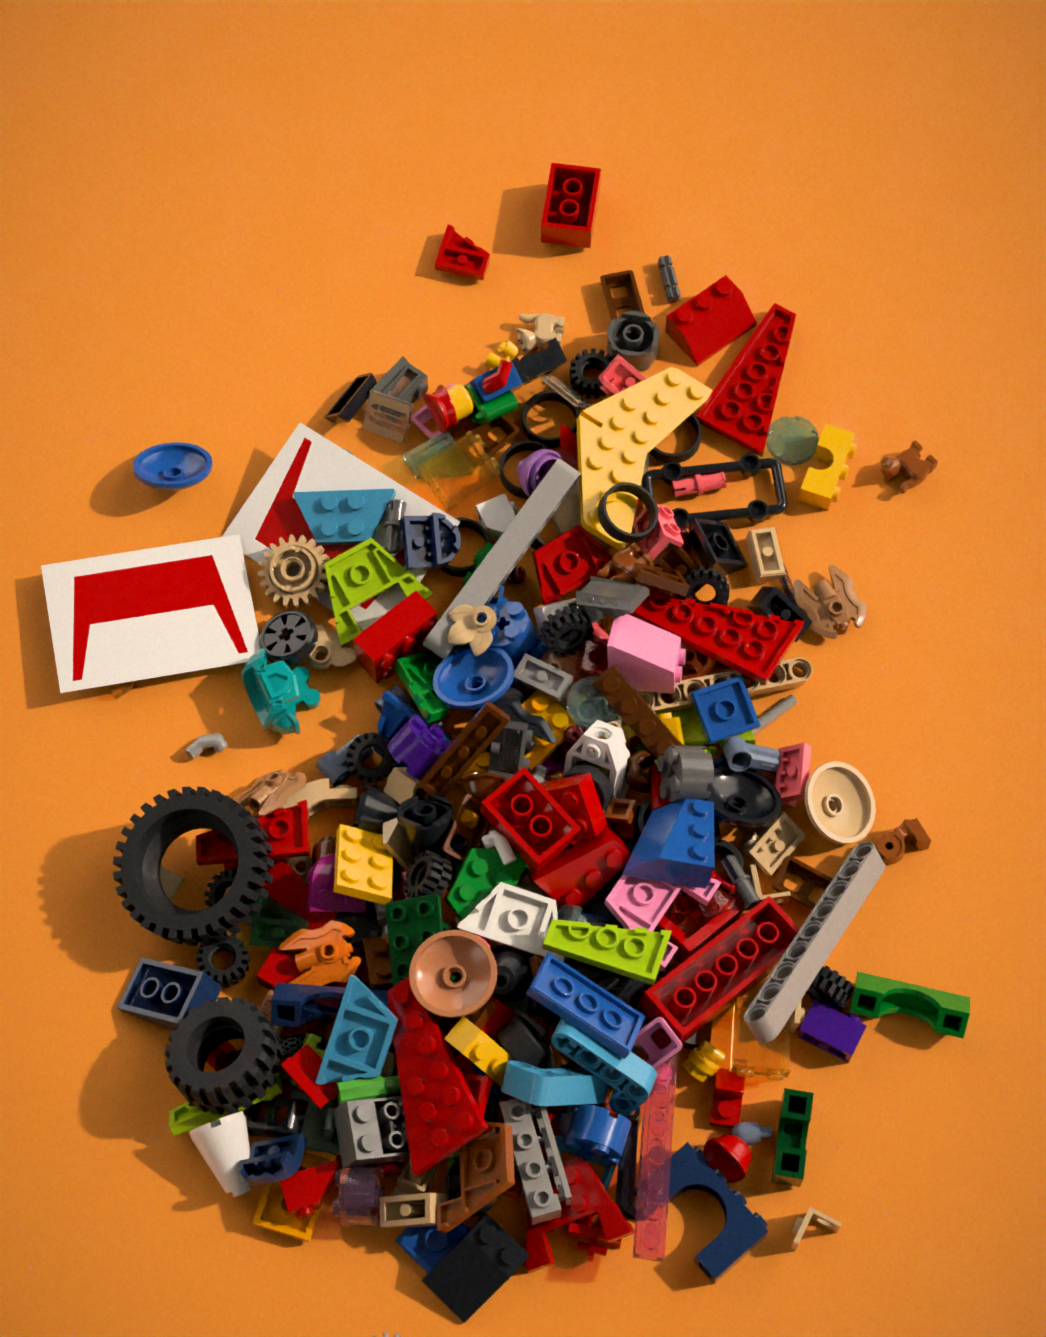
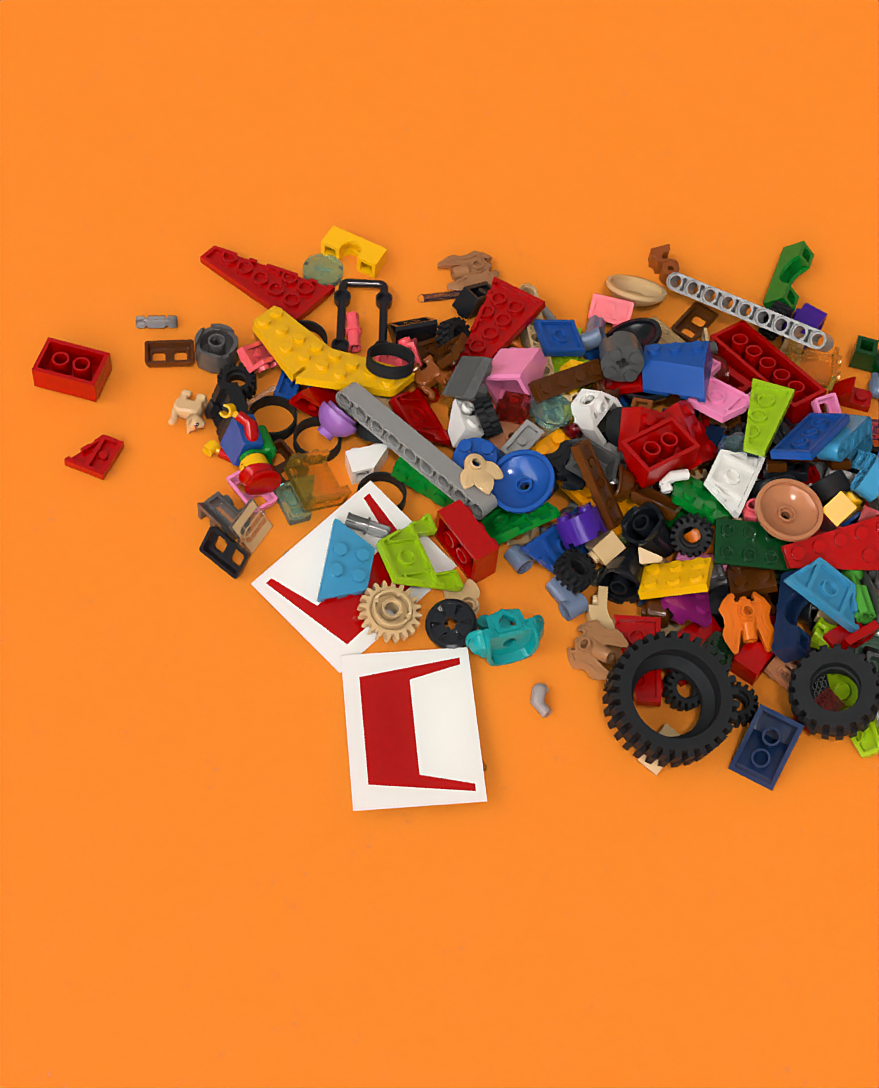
camera: 90 degrees left, 10 degrees down
(172, 466) = (269, 692): blue dish -> none
(429, 541) = (387, 502): dark blue slope -> none
(710, 320) = (204, 299): red slope -> none
(765, 555) = (422, 302): tan slope -> none
(910, 465) = (362, 205): dark orange animal -> none

